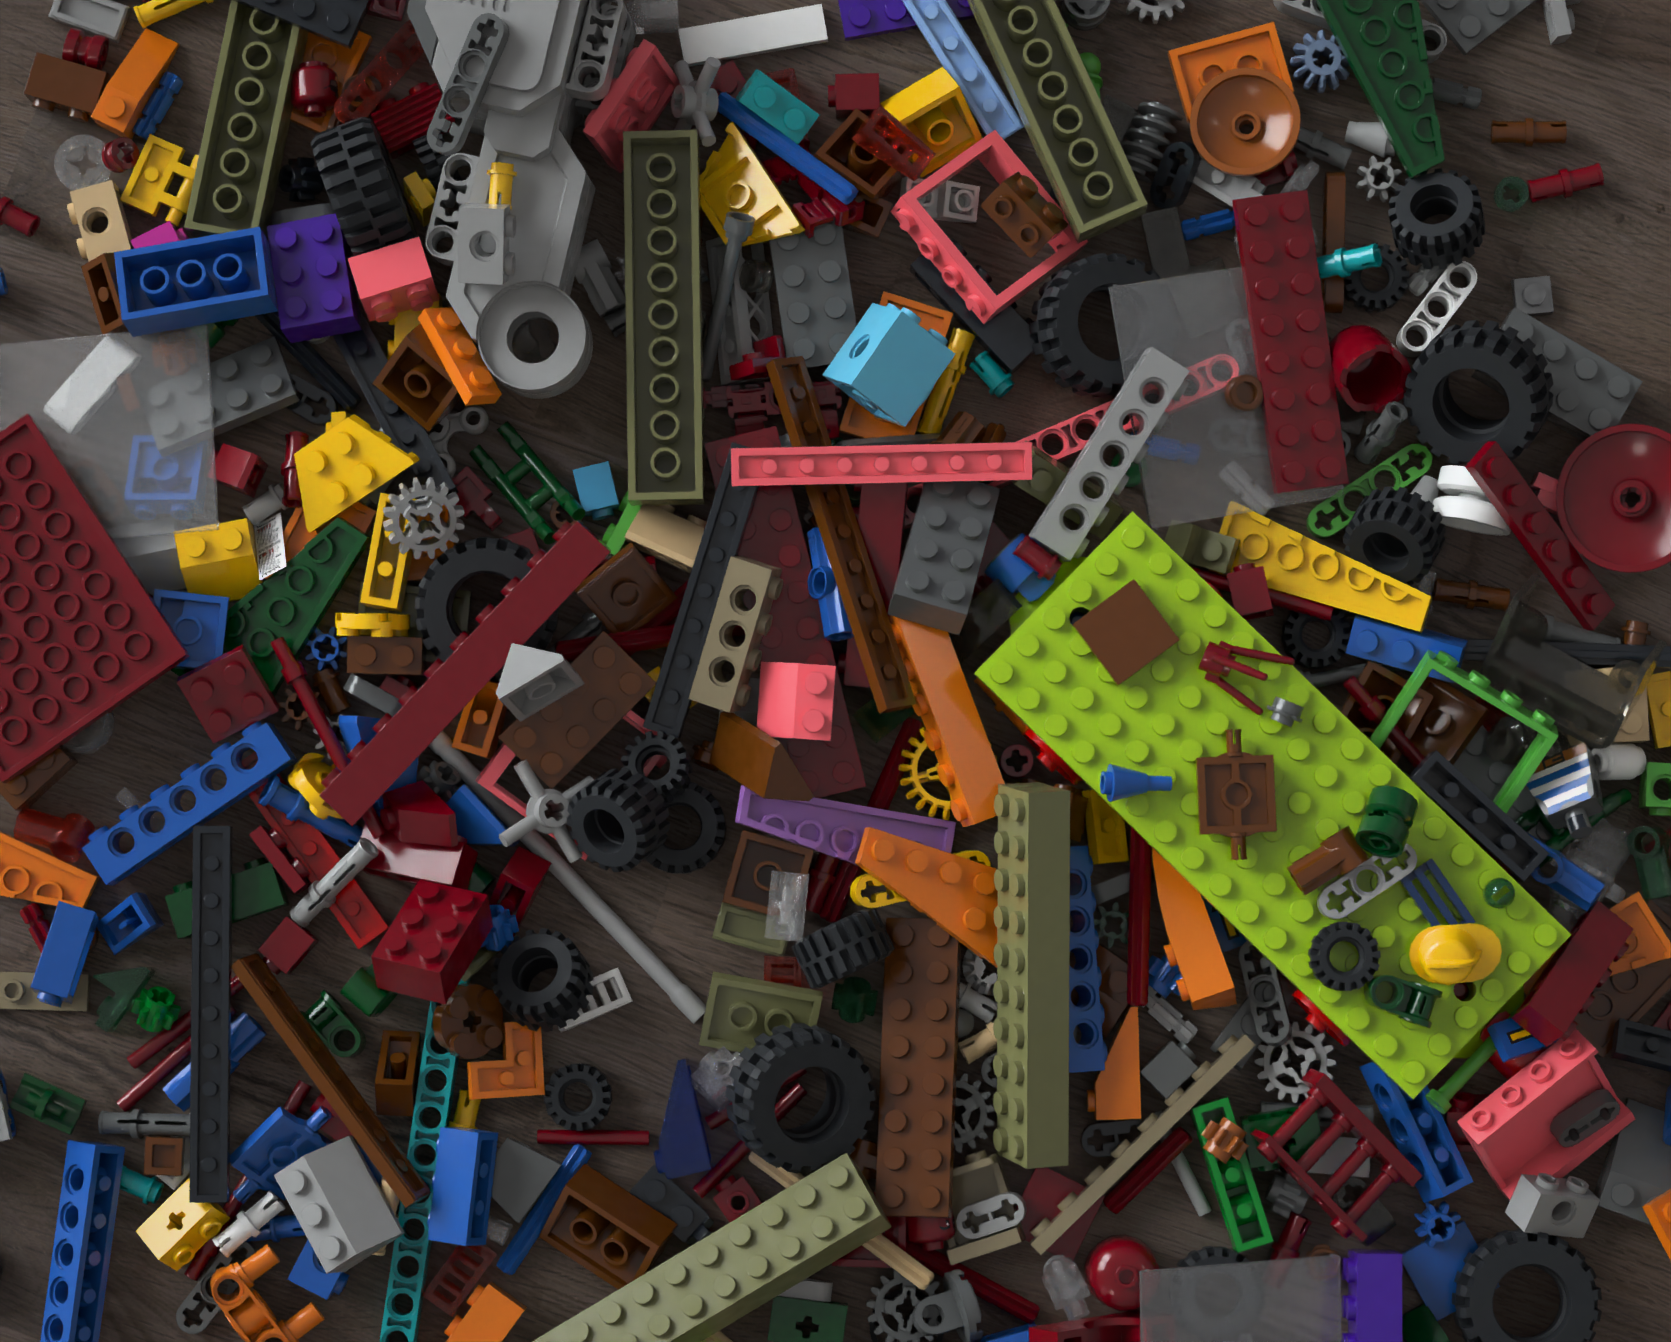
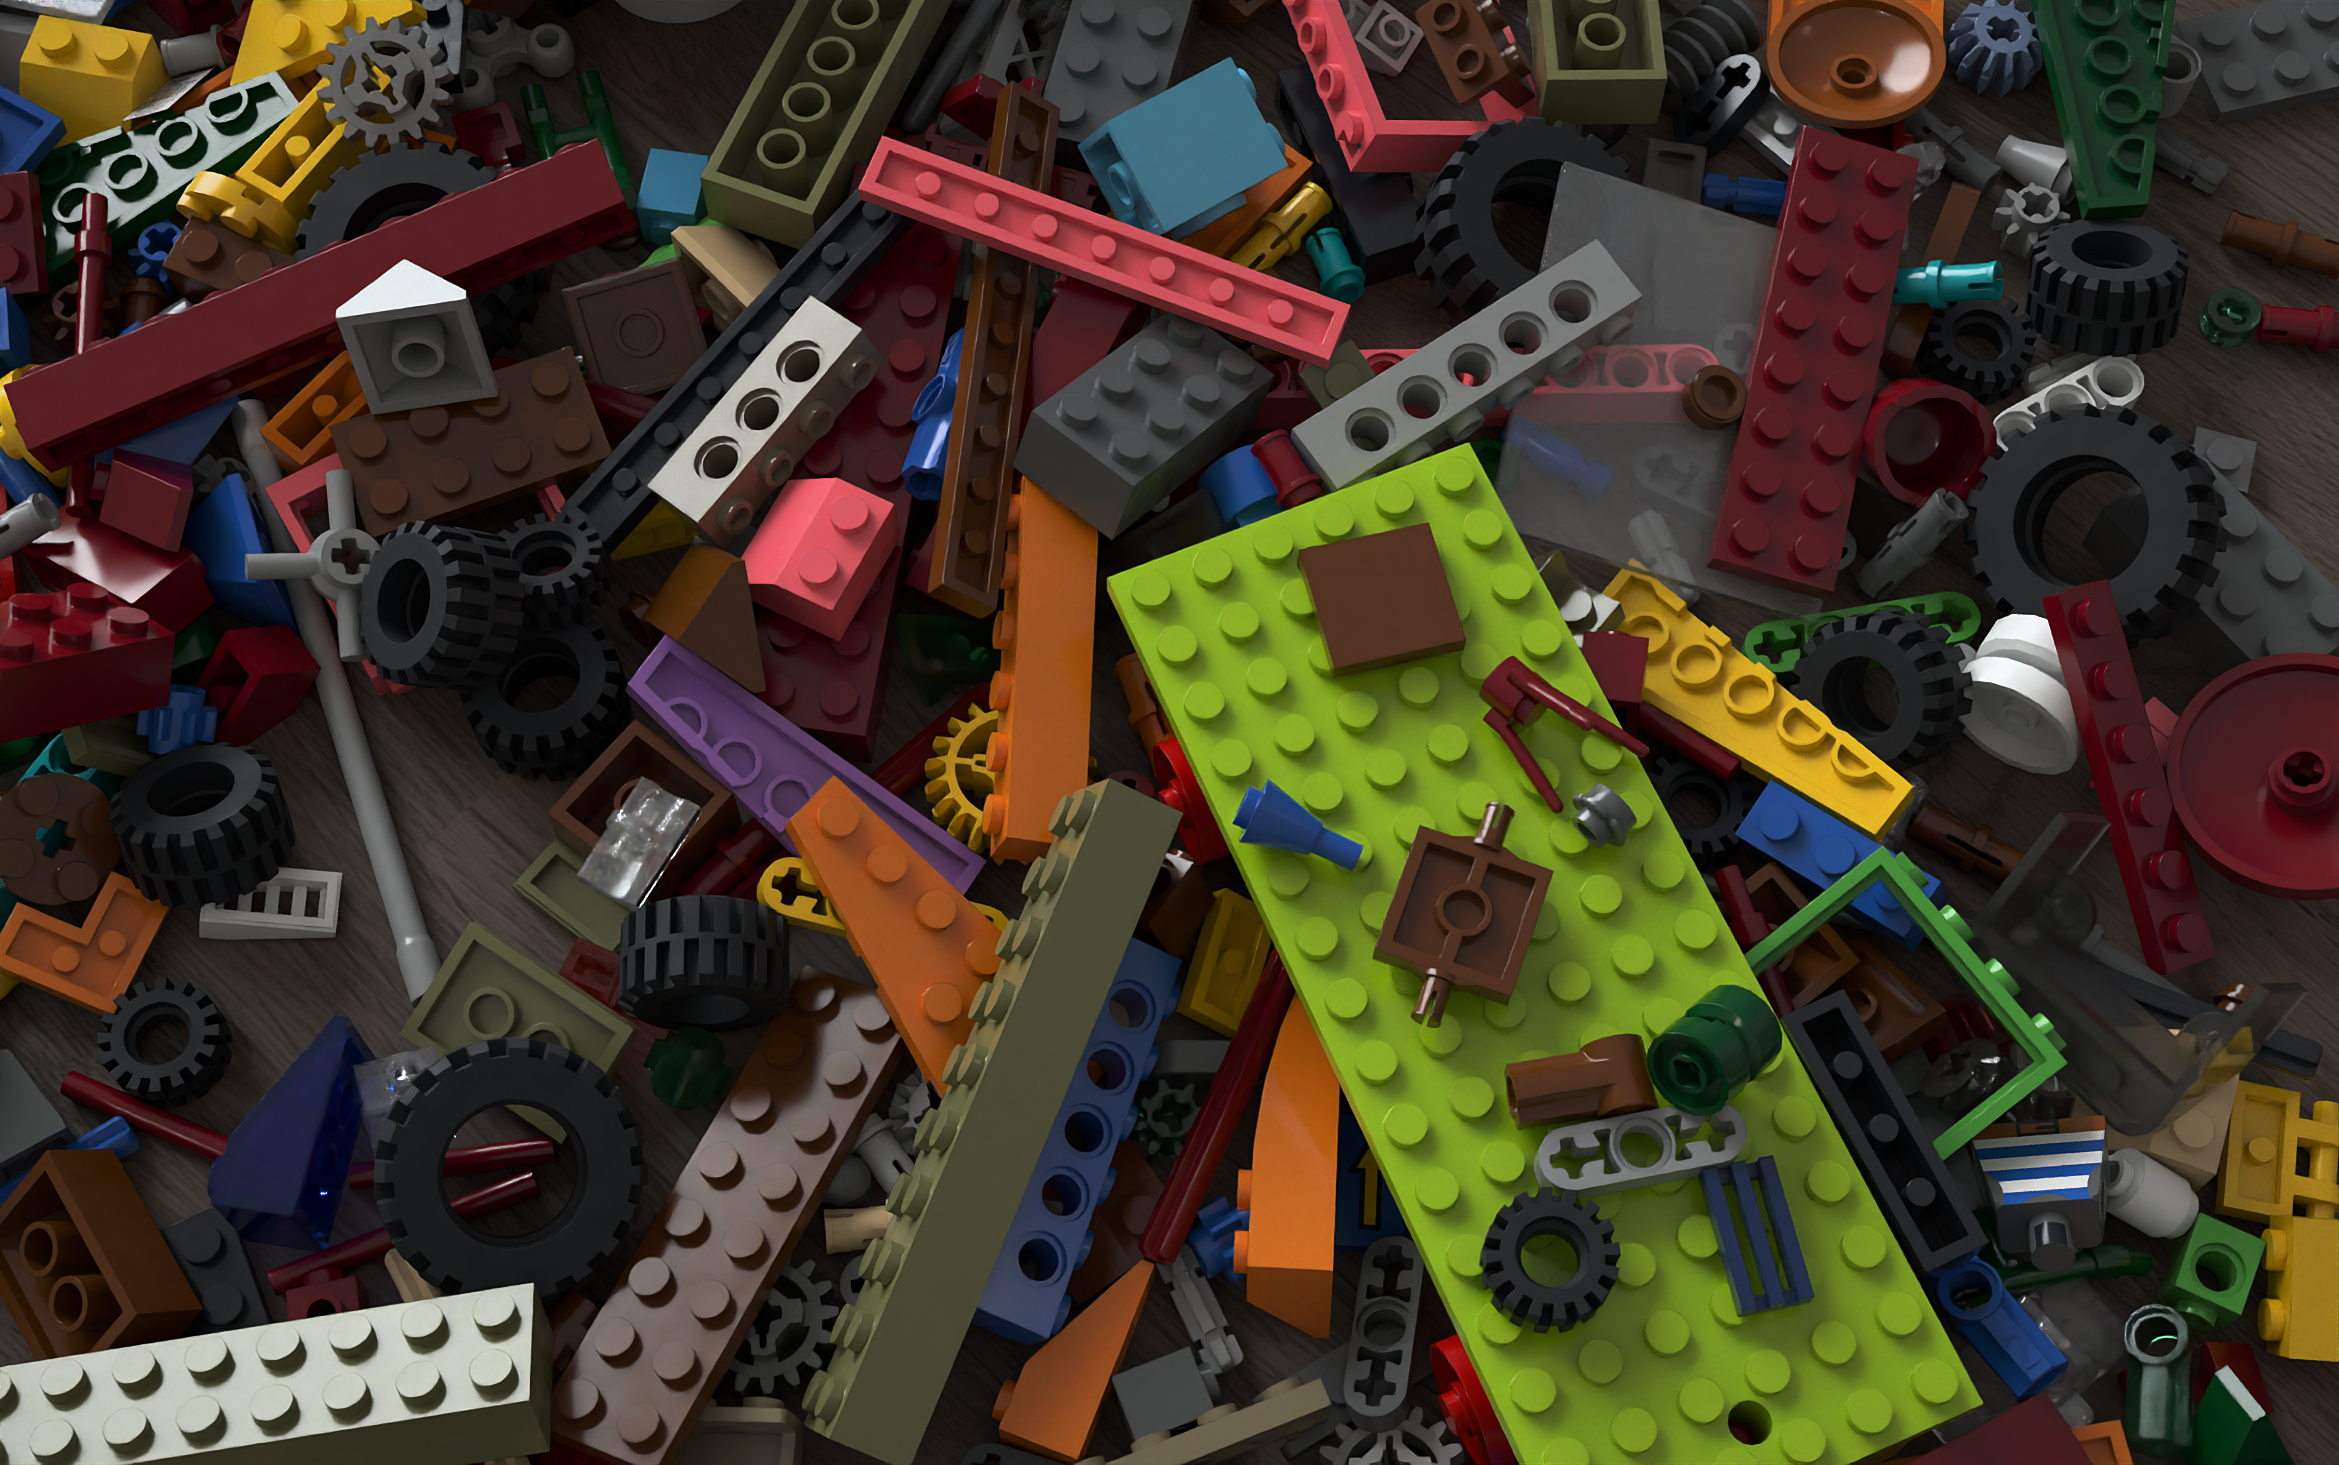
camera: 20 degrees right, 20 degrees down
(1408, 1001) = (1635, 1380): dark green piece -> none
(1455, 953) = (1757, 1340): yellow piece -> none
(1494, 886) = (1879, 1282): clear green hinge -> none

